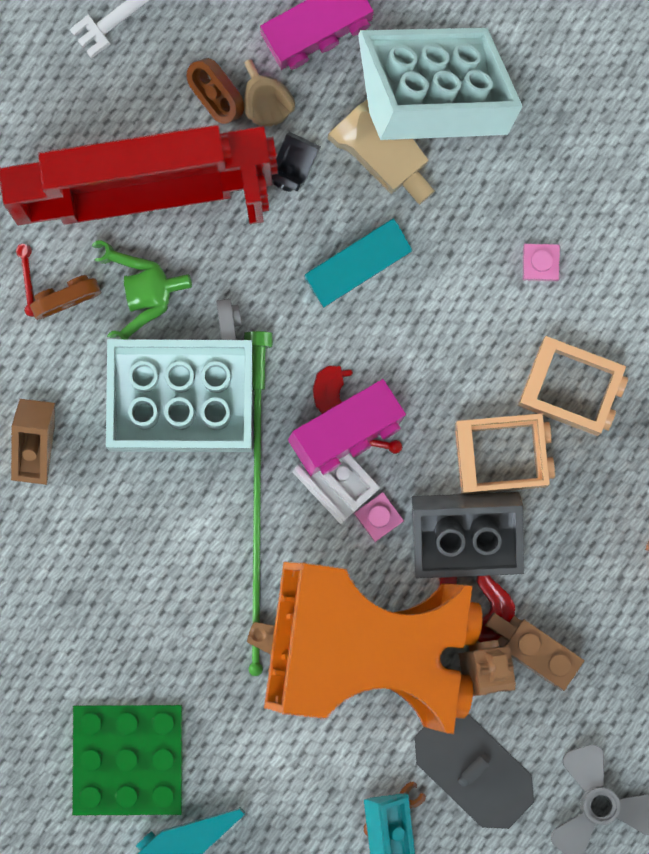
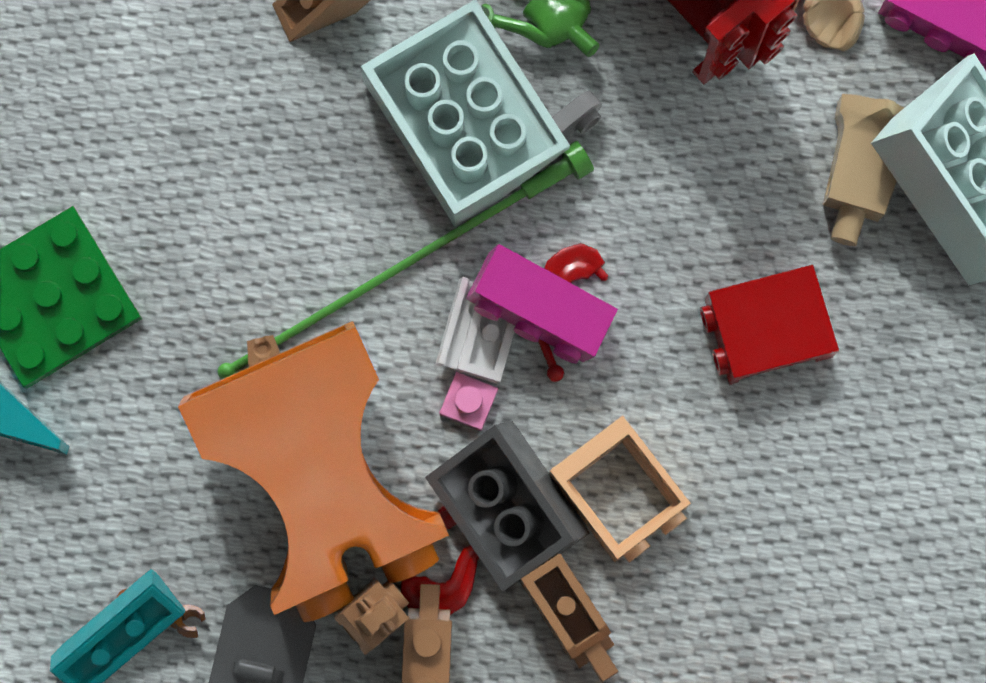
camera: 60 degrees right, 5 degrees down
(294, 162) = (788, 81): black bracket -> none
(358, 263) = (727, 212): teal slope -> none
(453, 284) = (769, 324): none -> red panel
(538, 373) = (731, 475): light nougat window -> none
(541, 262) = (854, 406): bright pink plate -> none
(568, 538) = (571, 616): none -> medium nougat hinge

